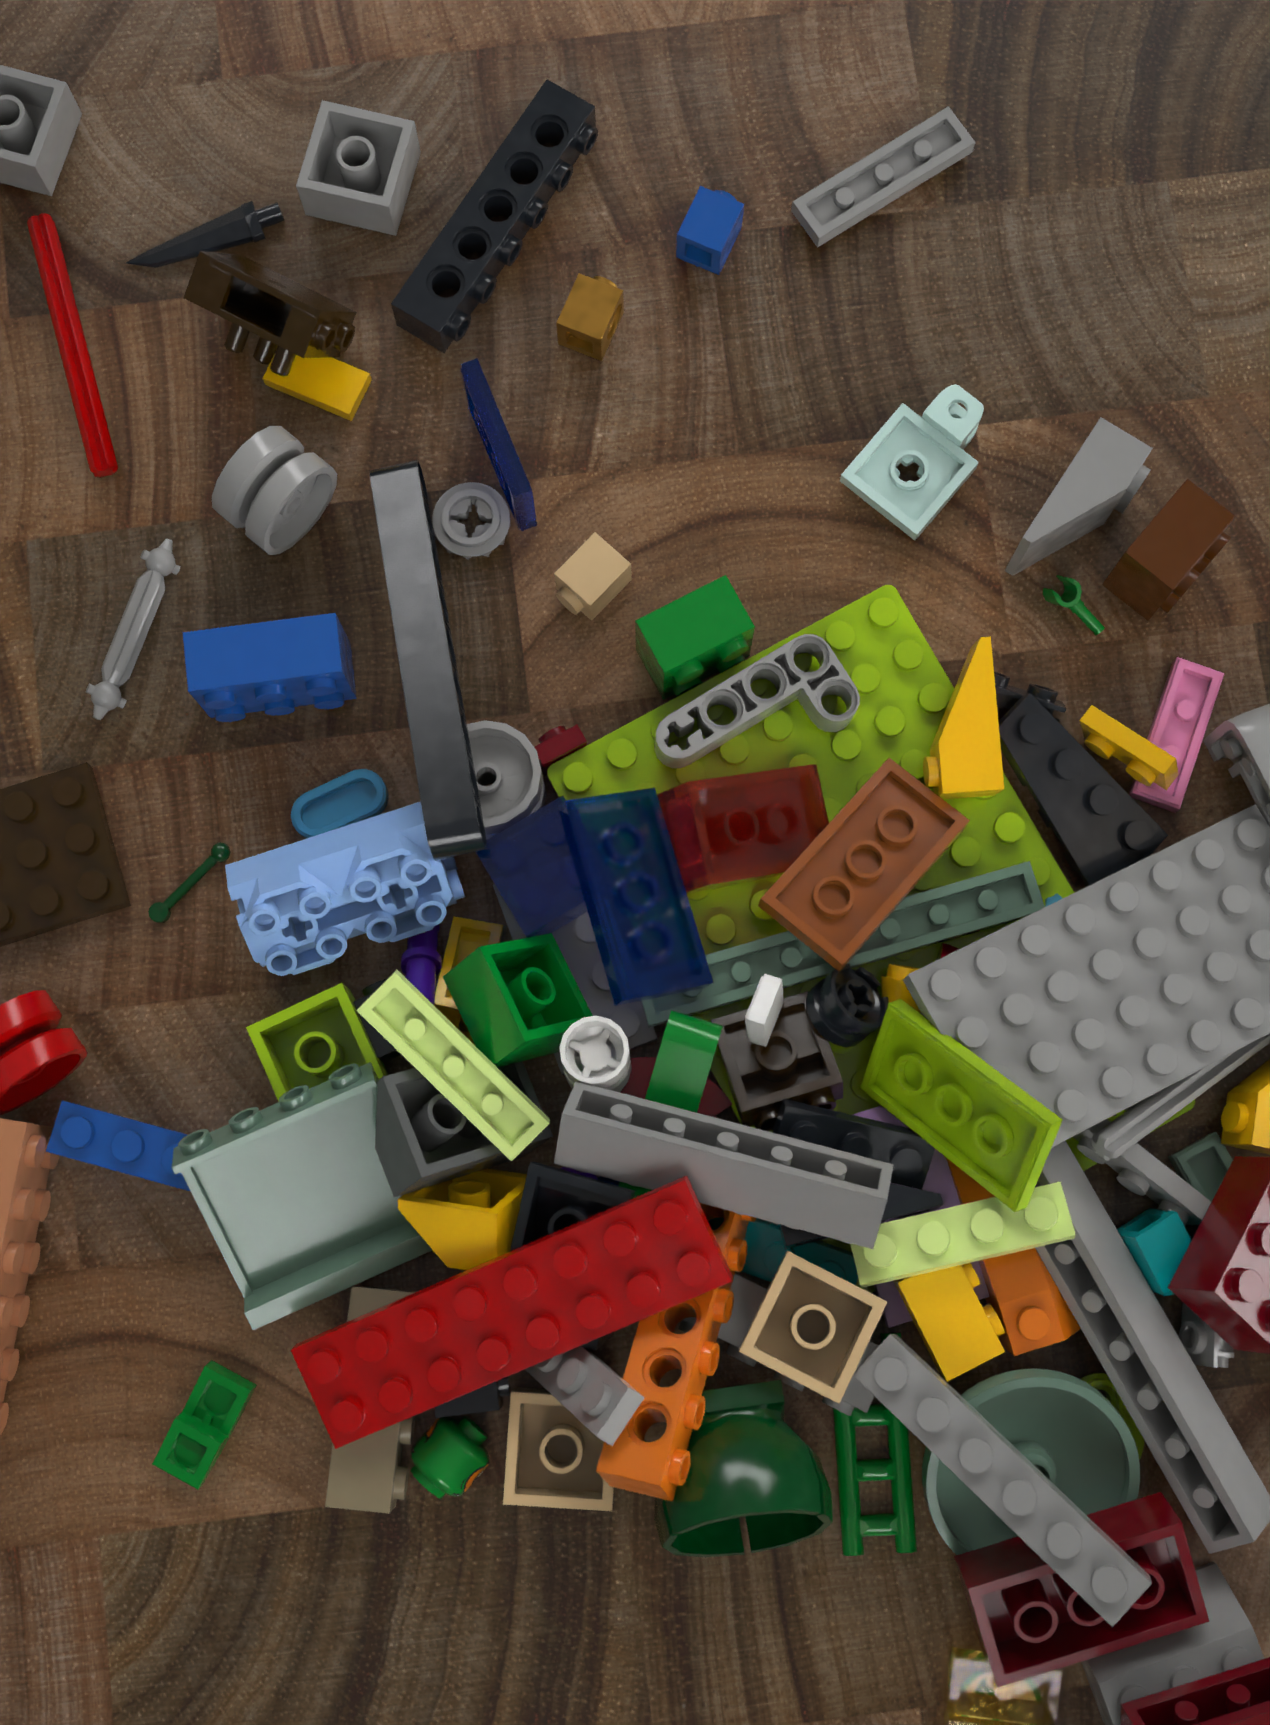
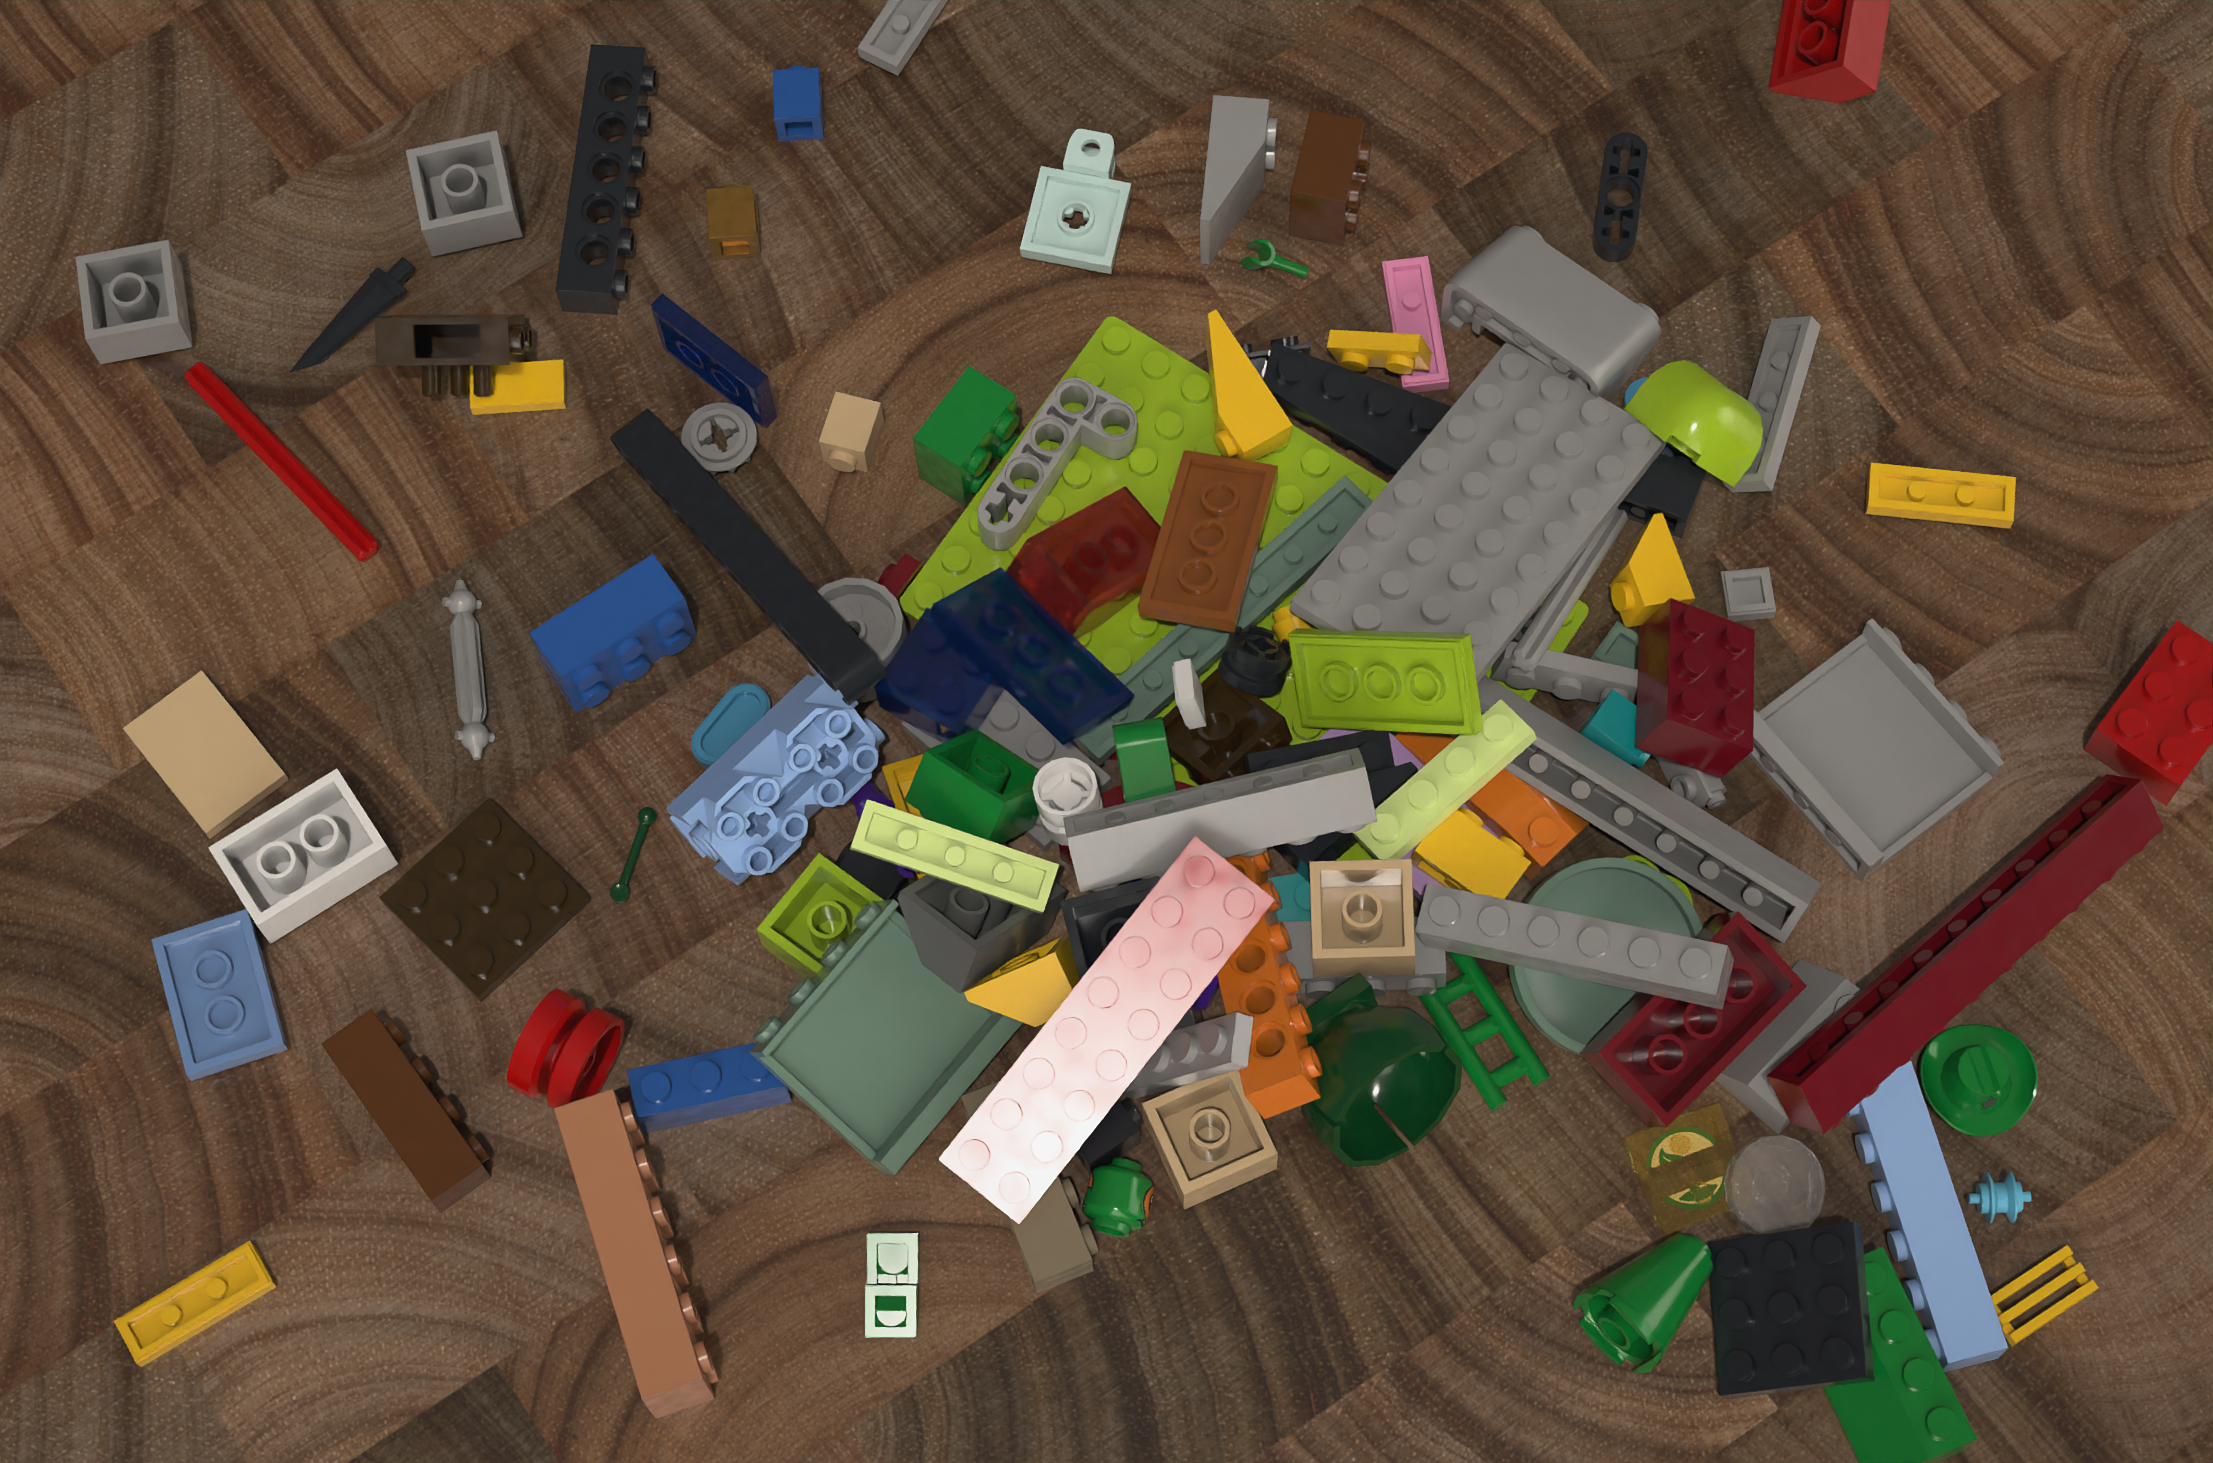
camera: 25 degrees left, 10 degrees down
(274, 489) = (537, 489): light grey wheel -> none

